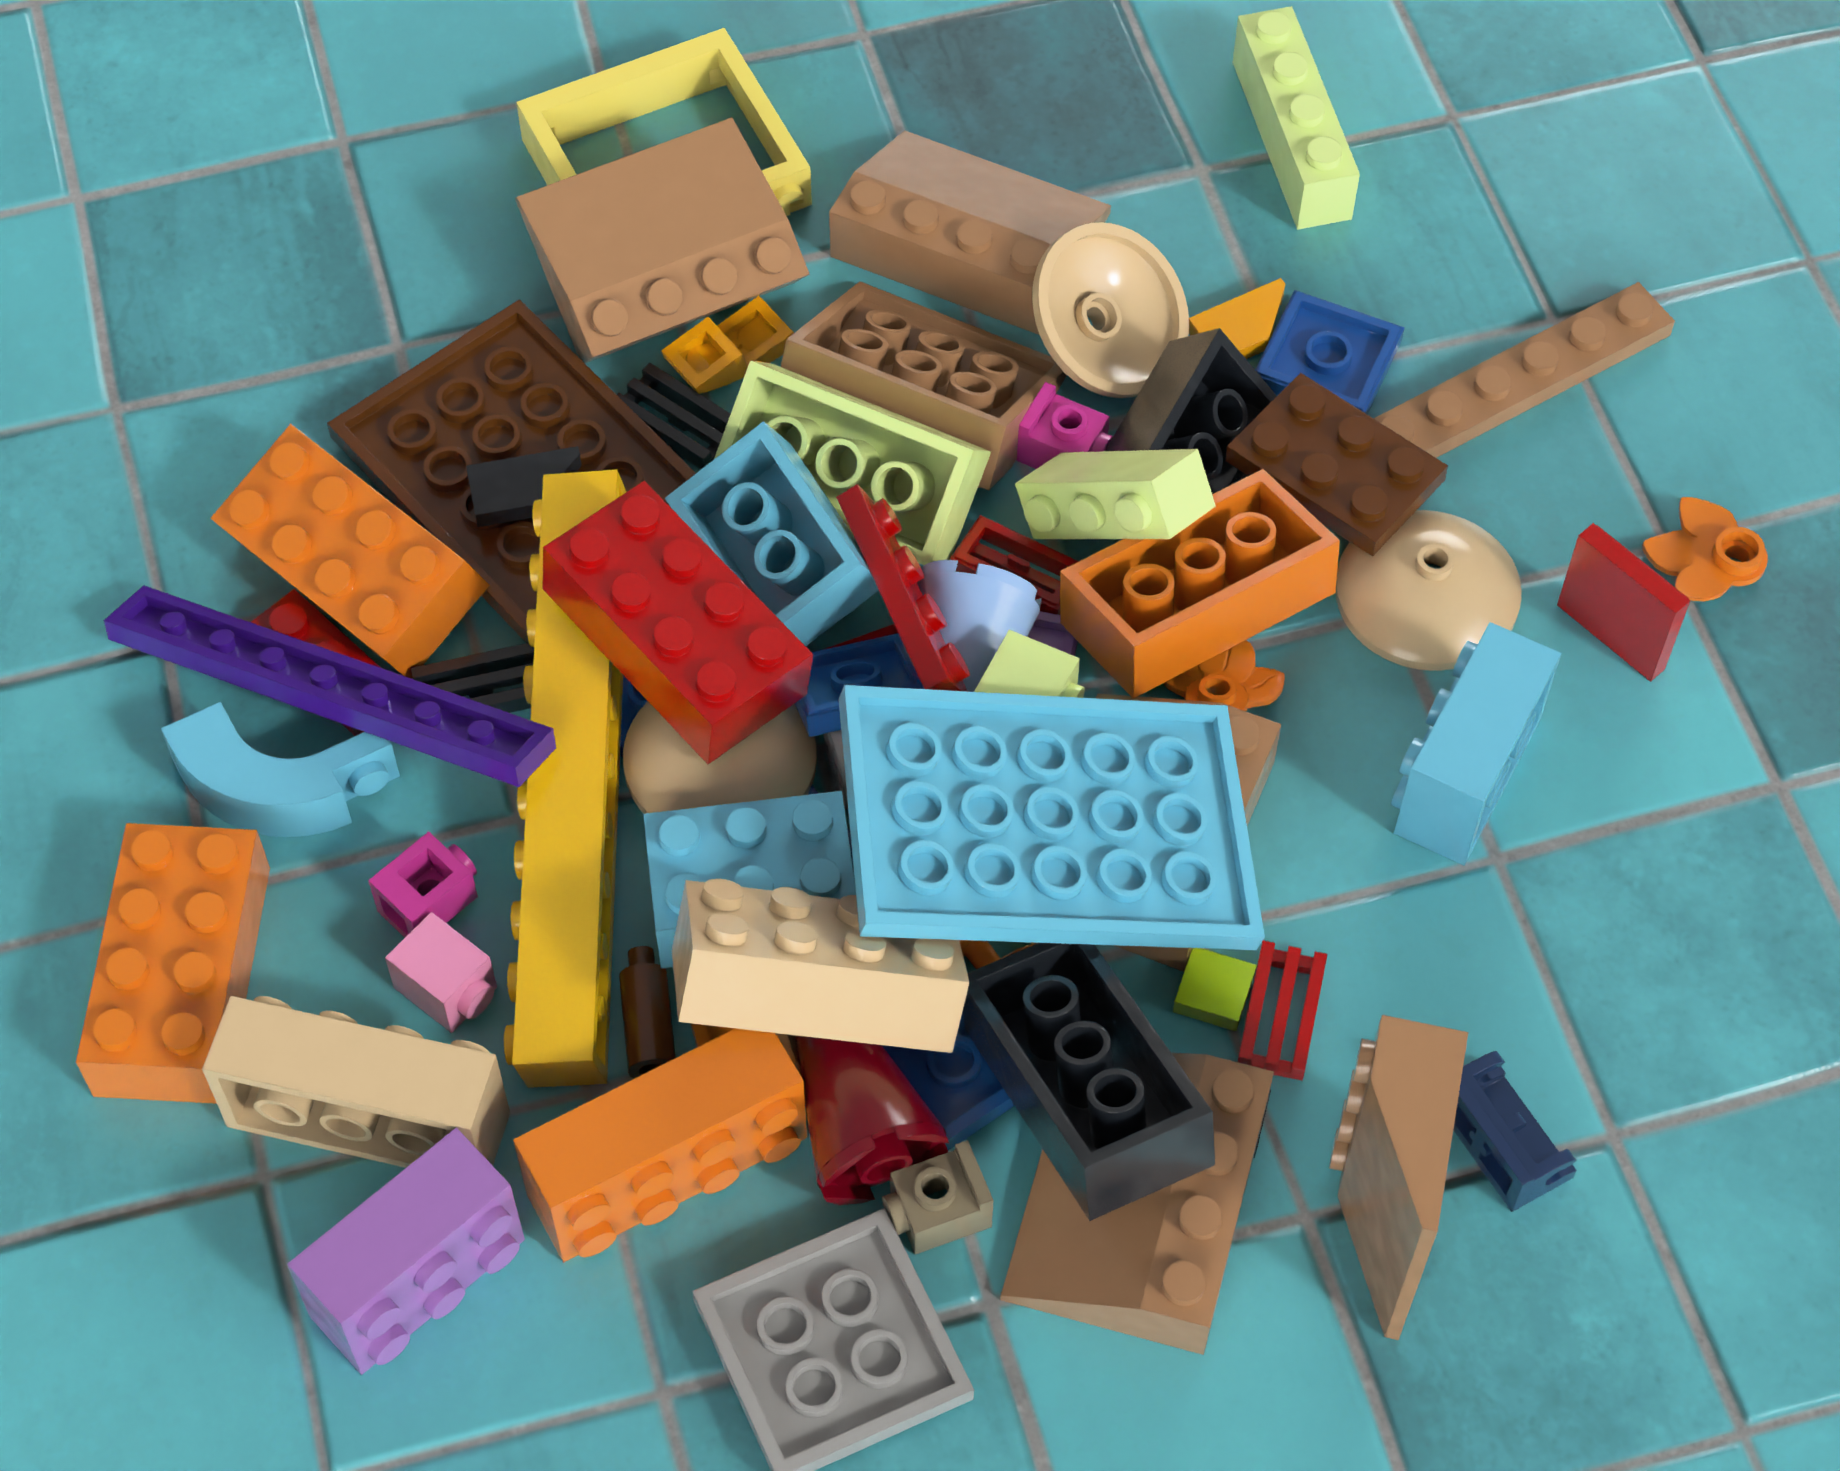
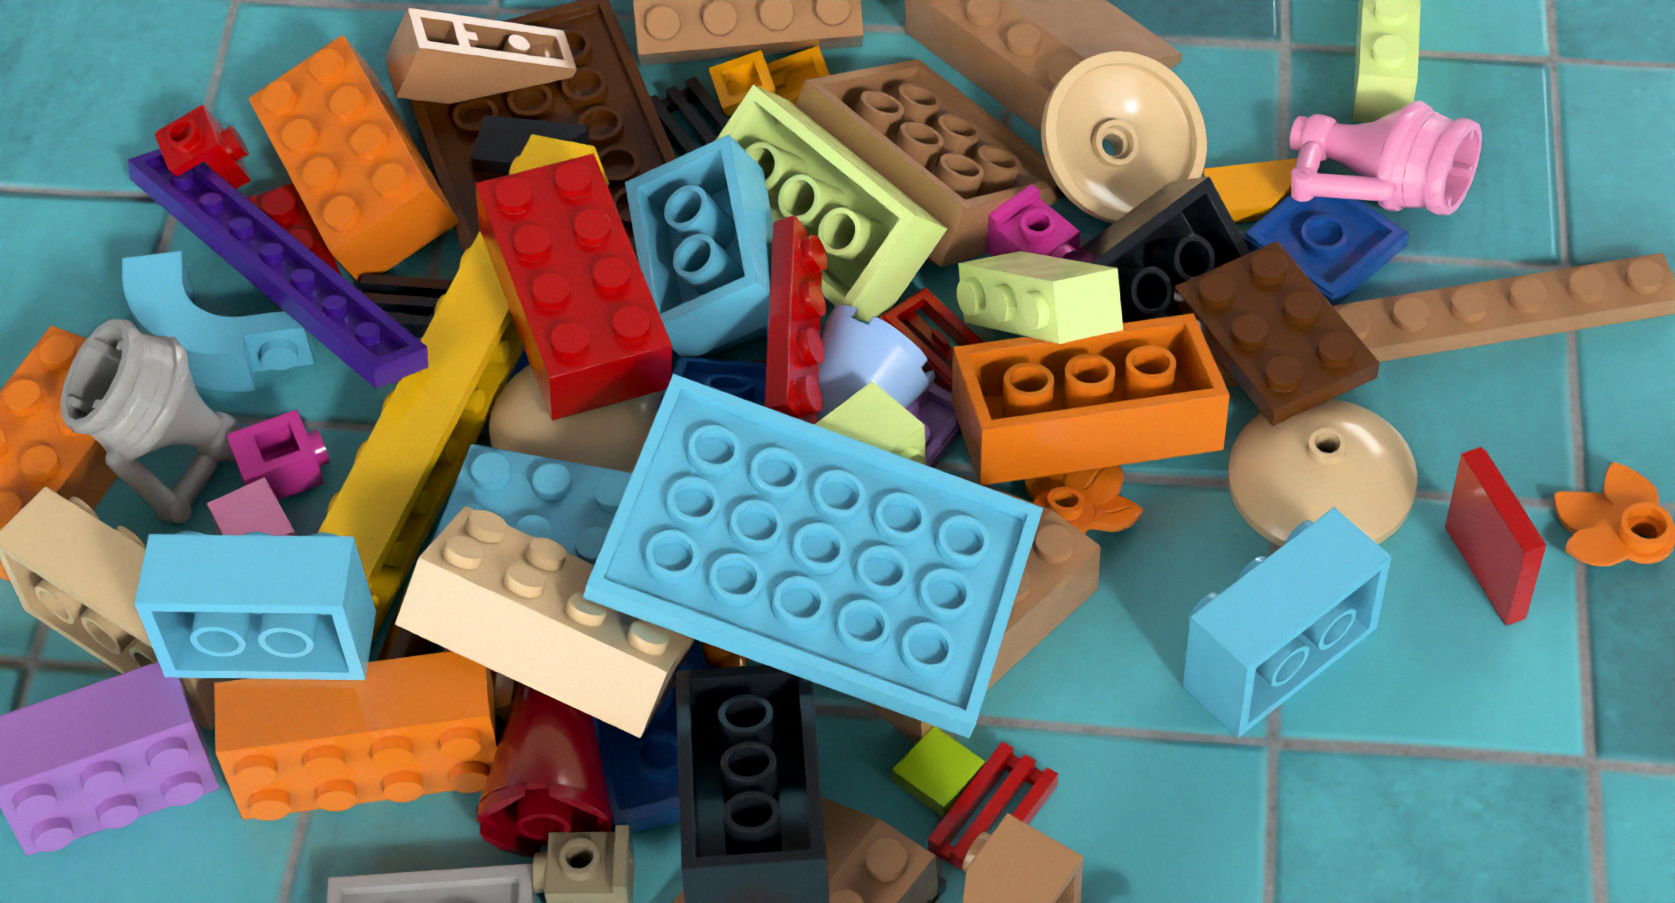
camera: 25 degrees right, 5 degrees down
(172, 581) = (201, 138): none -> red bracket
(274, 874) = (141, 397): none -> light grey piece
(418, 410) = (471, 57): none -> medium nougat slope
(544, 1048) = (256, 606): none -> medium azure brick
(1374, 256) = (1399, 160): none -> bright pink piece

